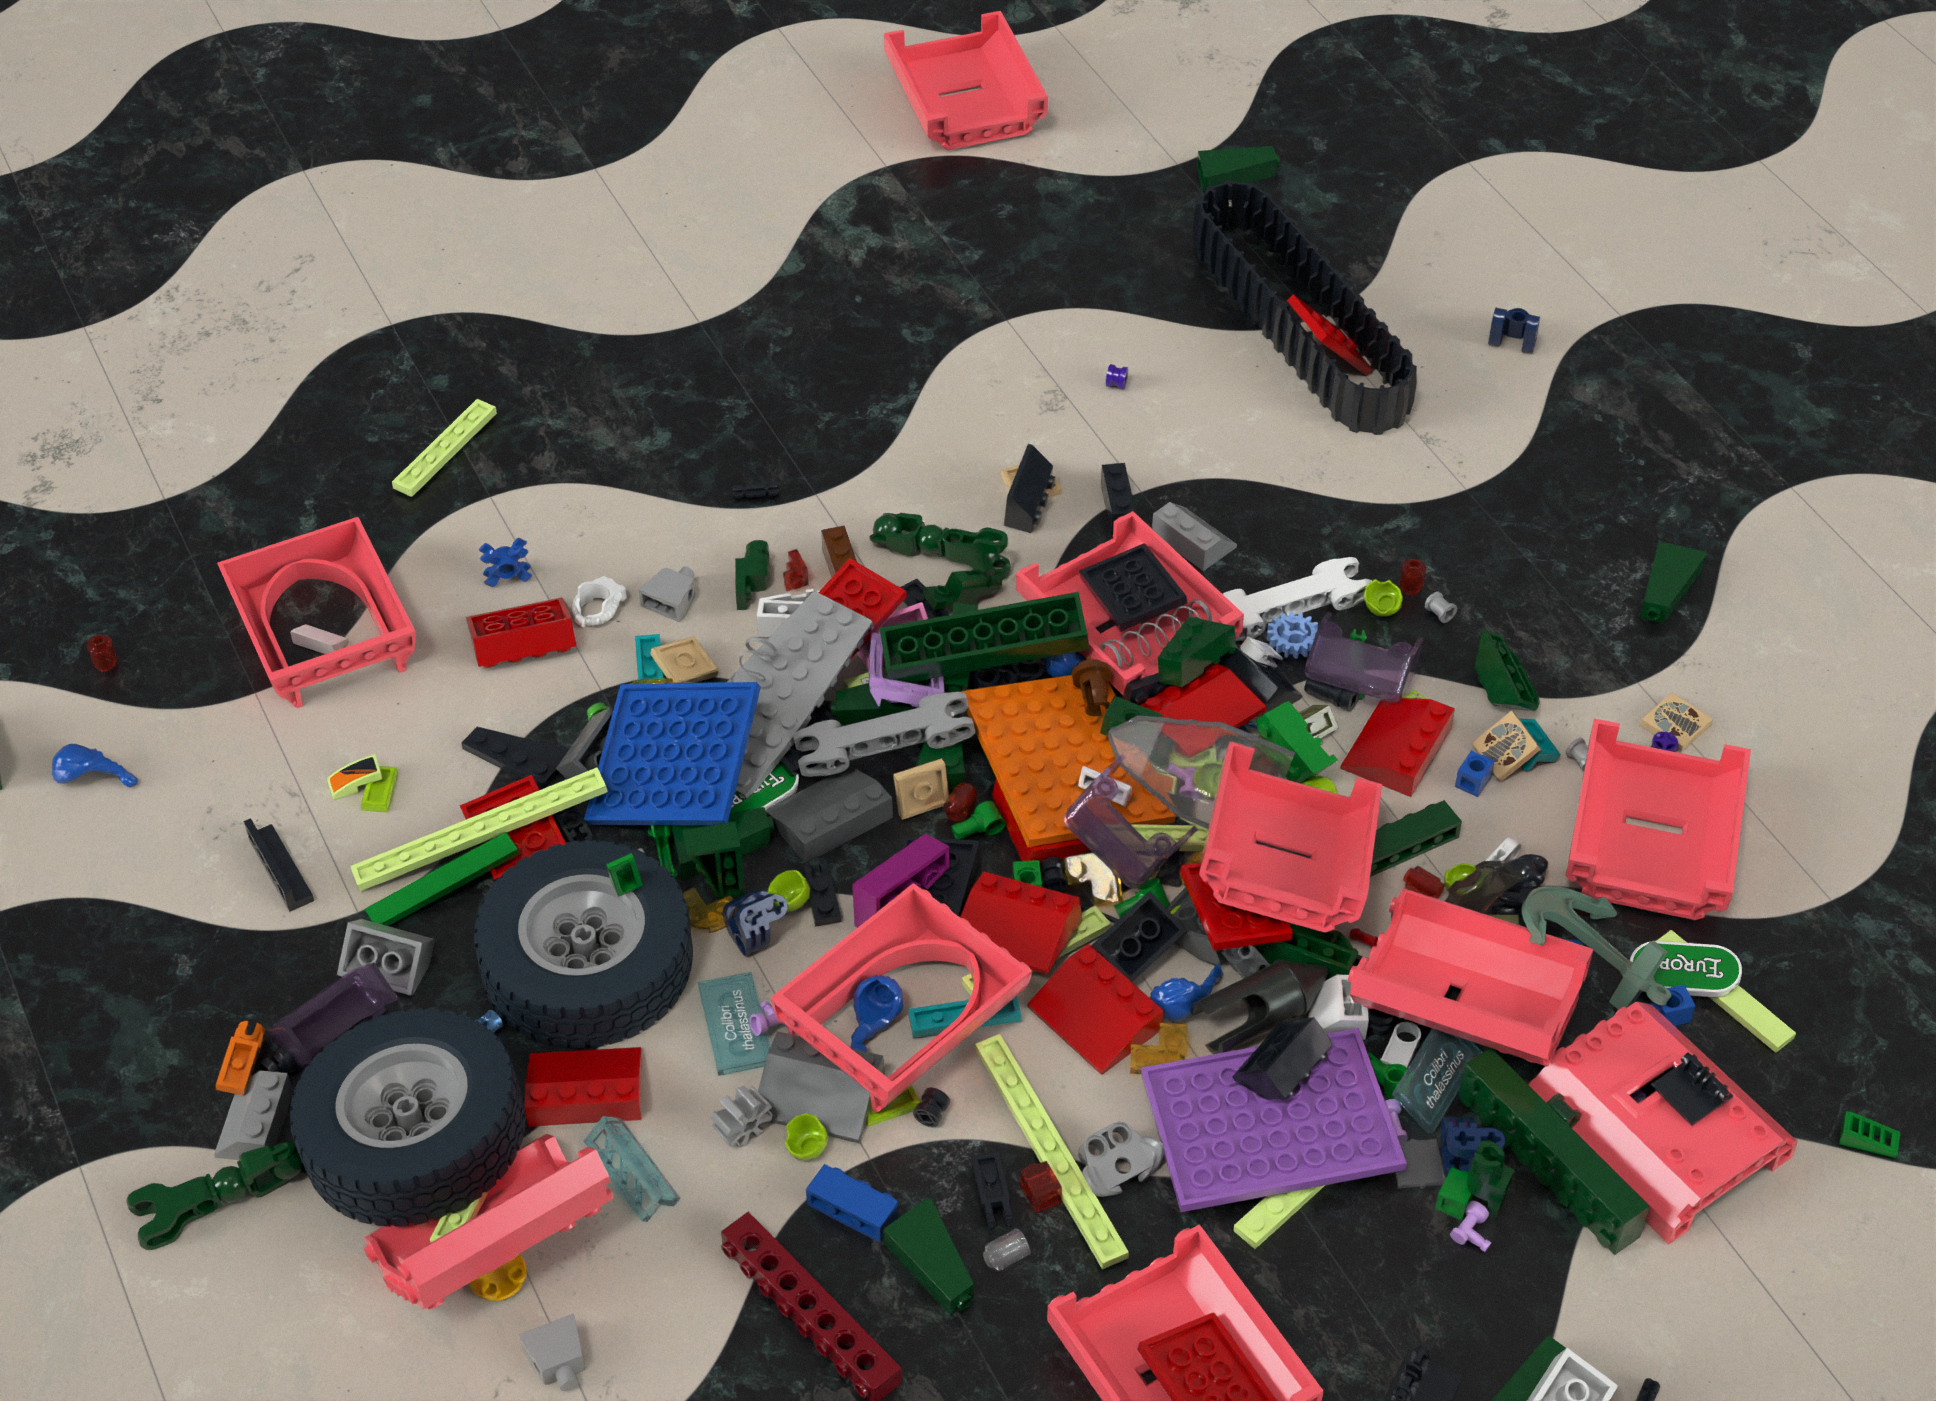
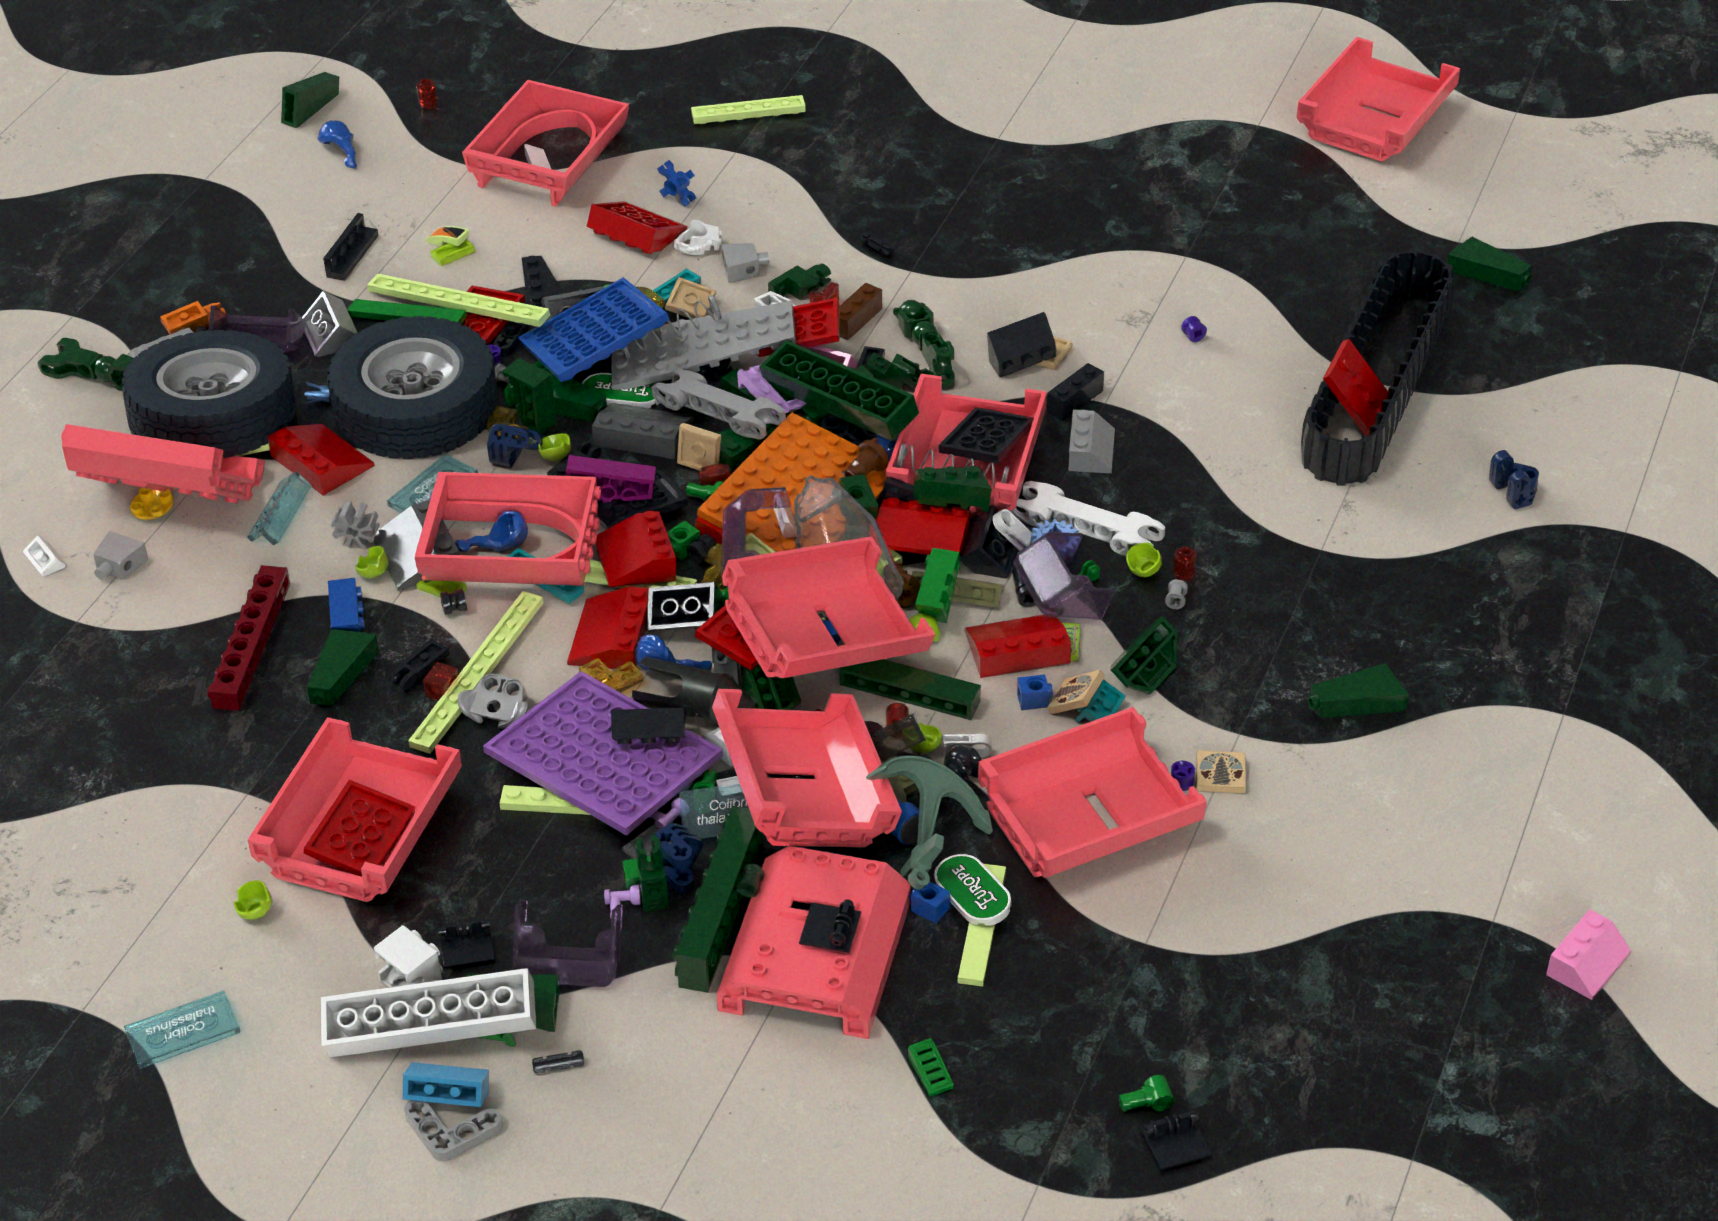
camera: 50 degrees right, 5 degrees down
(624, 875) = (453, 353): green slope -> none
(1006, 1250) = (377, 694): clear brick -> none
(1526, 1315) = (572, 964): none -> clear purple windscreen

